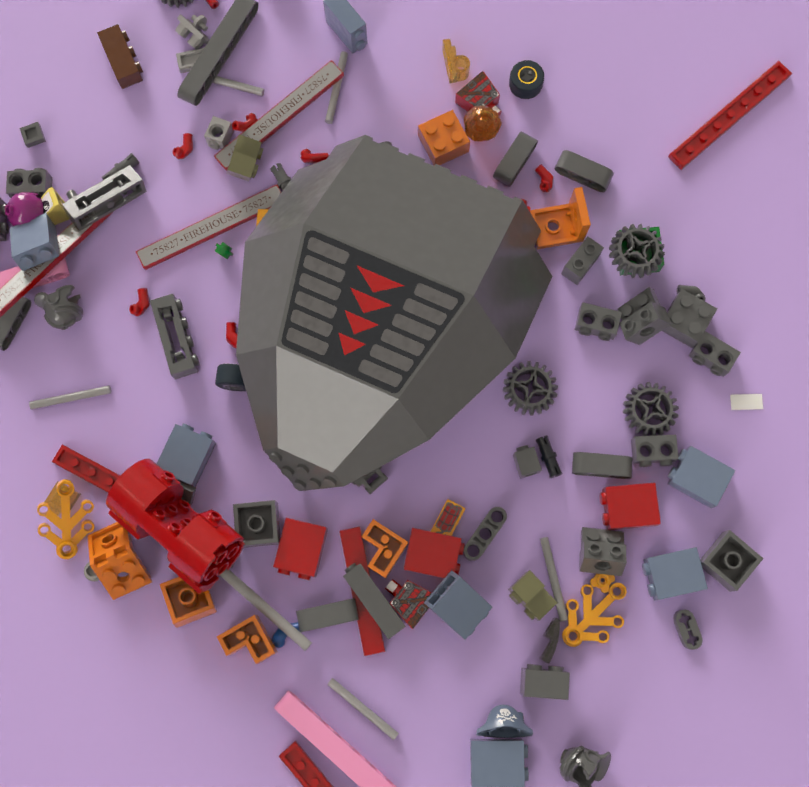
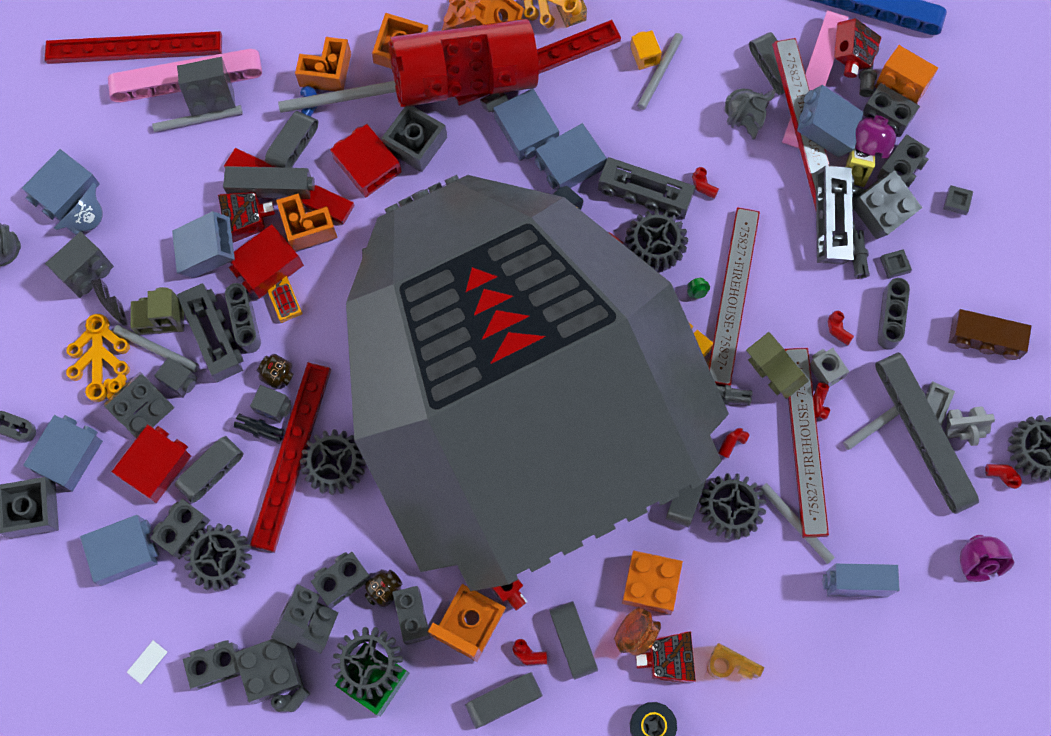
camera: 130 degrees right, 5 degrees down
(60, 418) = (645, 49): none -> light orange brick
(71, 171) = (886, 205): none -> brick
(110, 144) = (895, 264): none -> dark grey tile
(152, 112) = (899, 304): none -> dark grey beam
(190, 404) = (570, 158): none -> sand blue brick
(226, 302) = (669, 252): none -> dark grey gear
(336, 715) = (206, 86): none -> dark grey brick
(353, 113) = (741, 507): none -> dark grey gear
(503, 478) = (275, 371): none -> dark brown head
(526, 516) = (196, 299): none -> dark grey brick
(547, 422) = (288, 461): none -> red tile
(562, 542) = (176, 377): none -> dark grey brick
(580, 291) = (381, 587): none -> dark brown head

